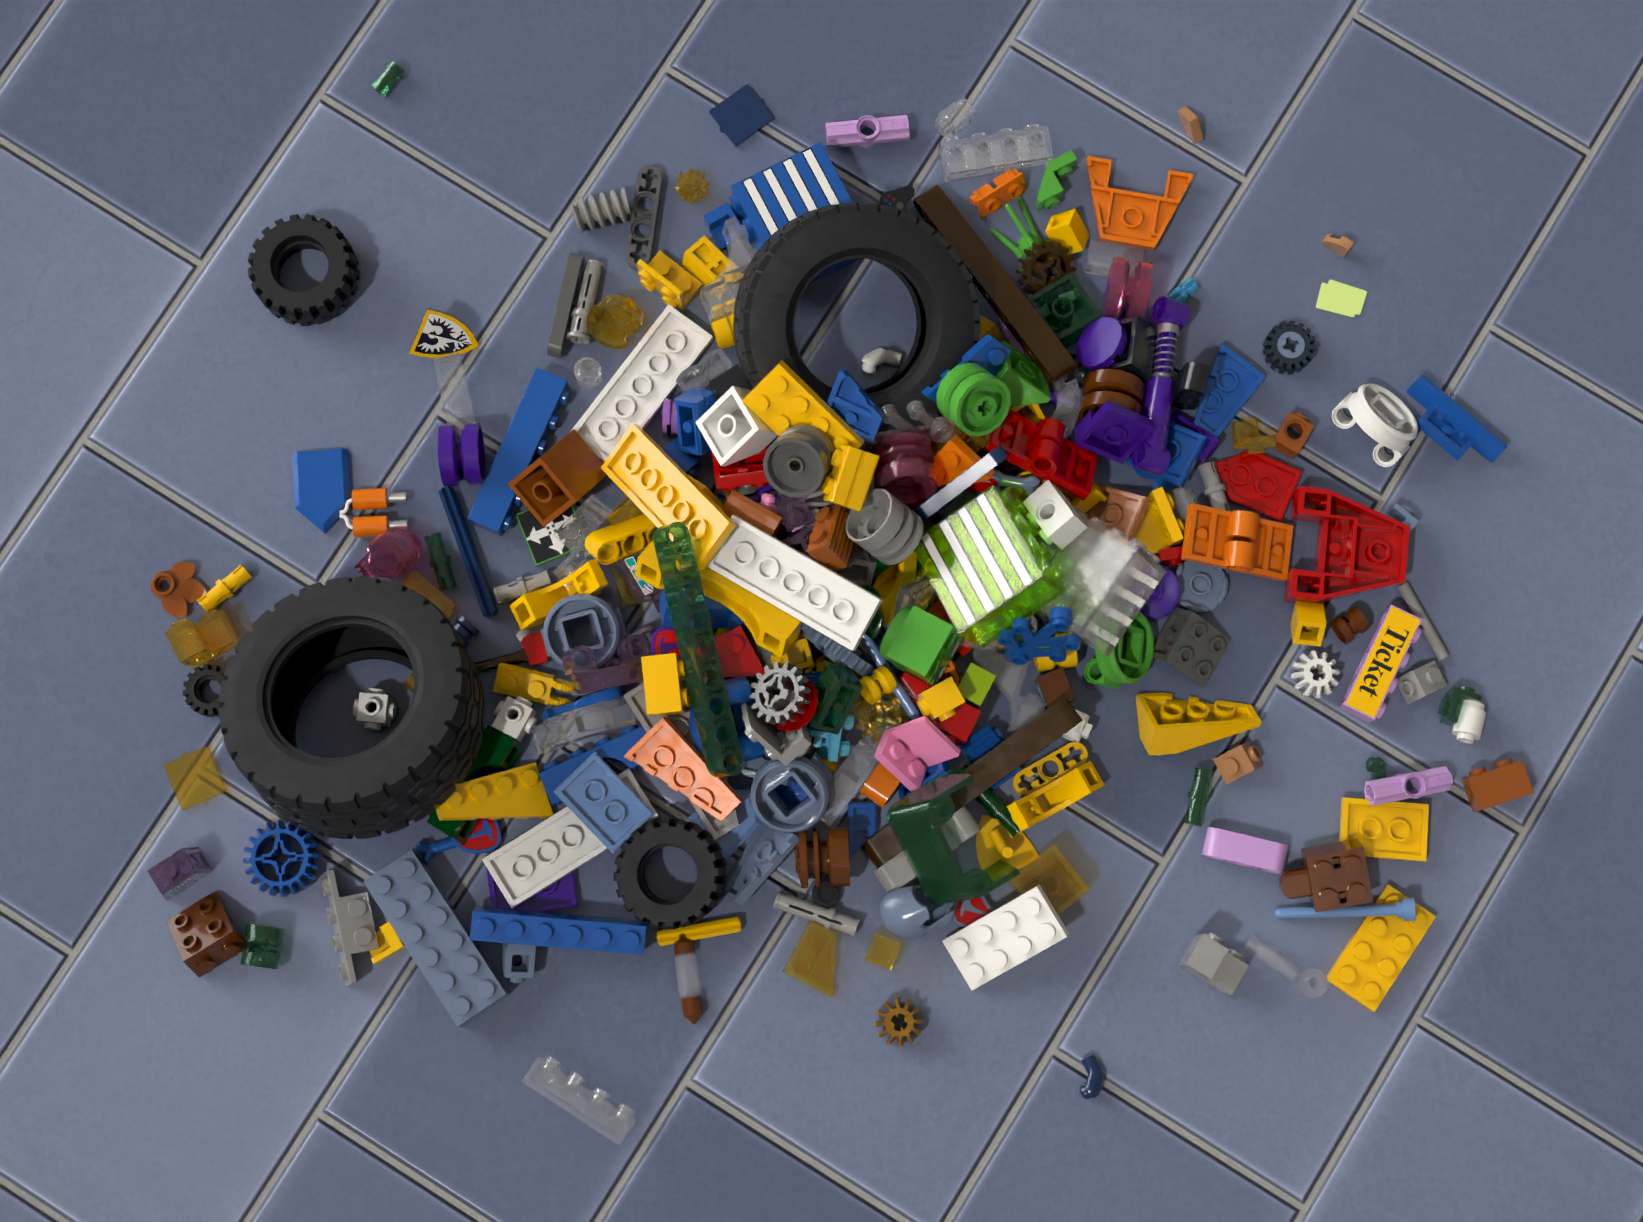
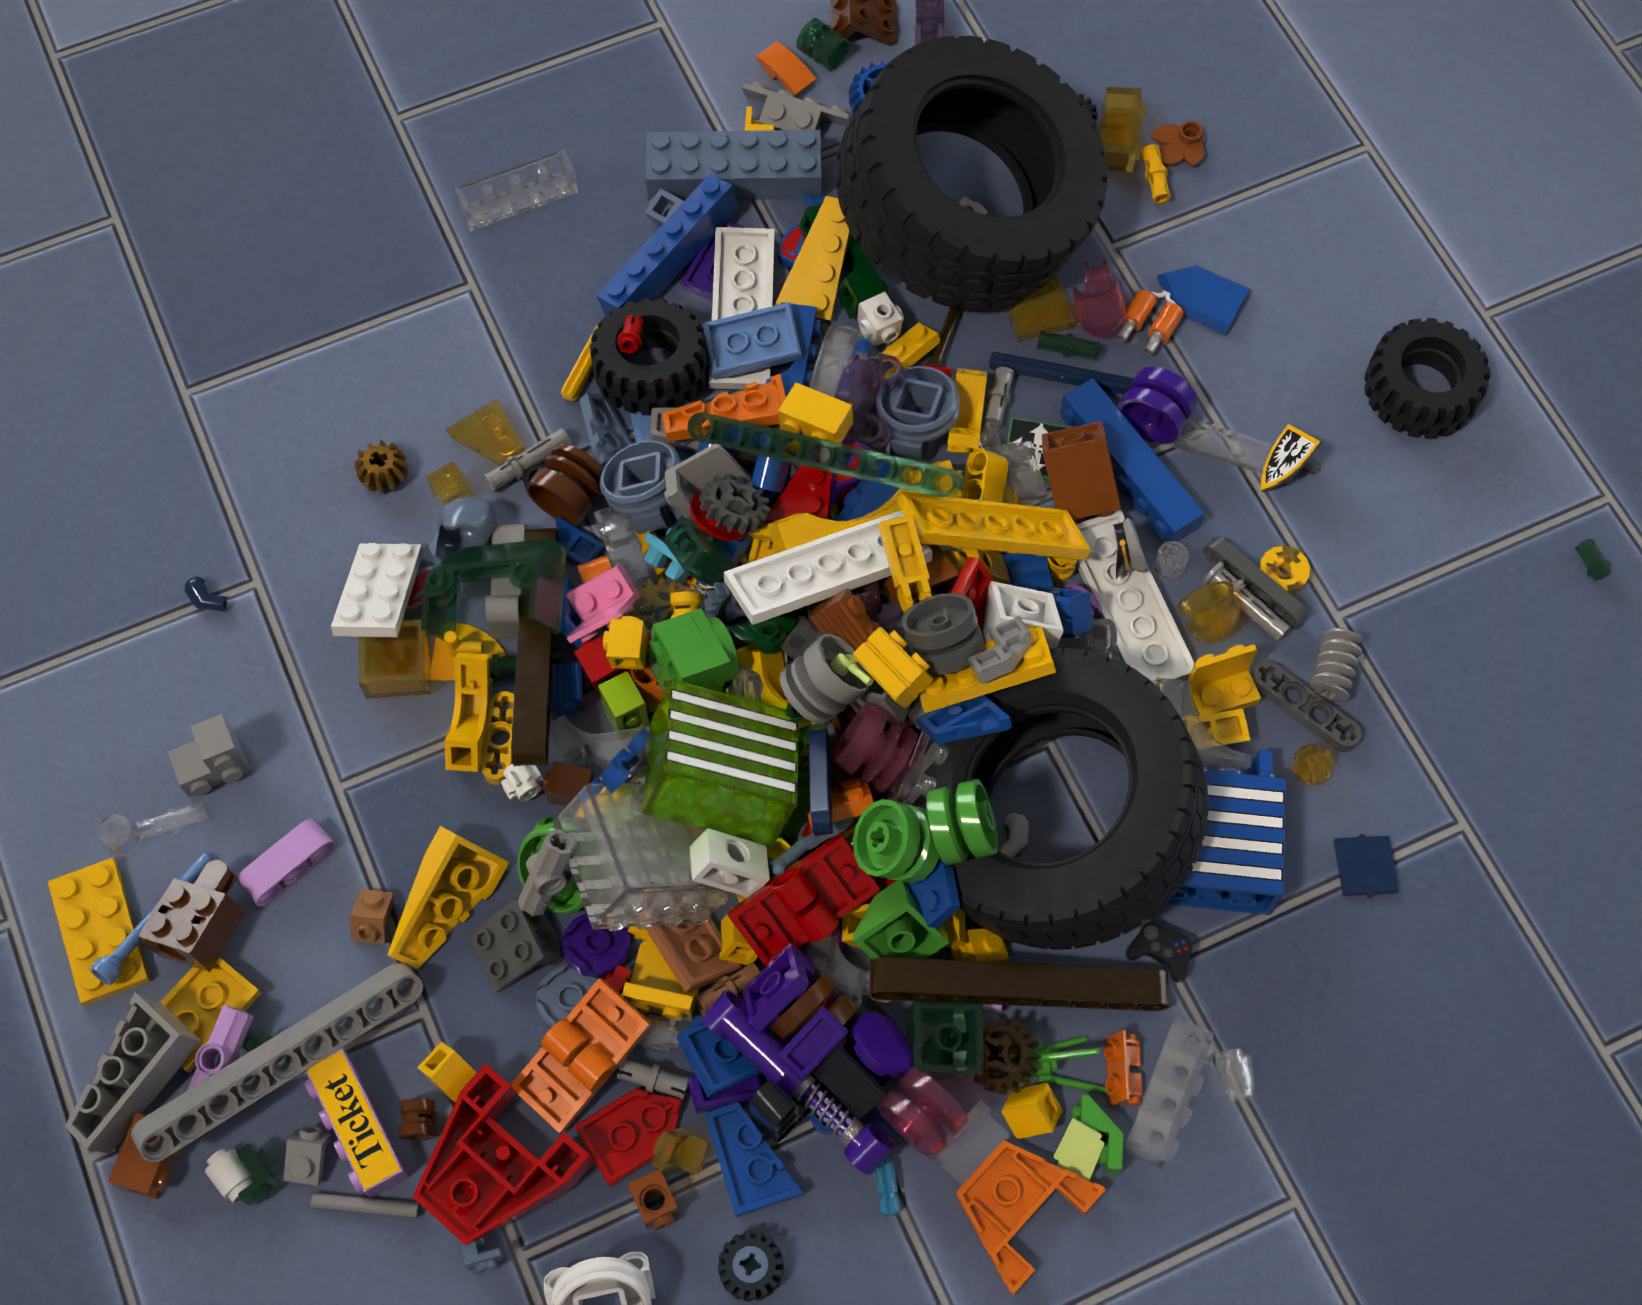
camera: 125 degrees right, 15 degrees down
(304, 965) = (786, 67): none -> orange slope
(464, 629) = (990, 326): dark blue wheel -> none
(538, 280) = (1292, 561): none -> piece
(609, 401) = (1129, 548): none -> piece
(680, 883) = (629, 340): none -> red pin
(688, 978) = (551, 329): piece -> none
(757, 523) = (905, 559): none -> yellow hinge
(796, 401) = (1011, 643): none -> light grey tile
(865, 518) = (844, 663): none -> yellowish green hand
(885, 130) = (1263, 990): lavender piece -> none
(936, 358) = (962, 822): none -> bright green wheel
(1074, 186) = (1079, 1149): none -> yellowish green sticker
(1106, 474) = (733, 983): none -> medium nougat pin
(1138, 378) = (813, 1043): none -> dark purple tile
(1144, 637) = (546, 872): none -> light grey piece
(1198, 797) = (369, 854): clear green pin -> none
(1305, 676) = (408, 1042): white gear -> none
(1383, 738) = (261, 1062): none -> light grey beam
(1449, 832) = (133, 1072): none -> light grey wedge

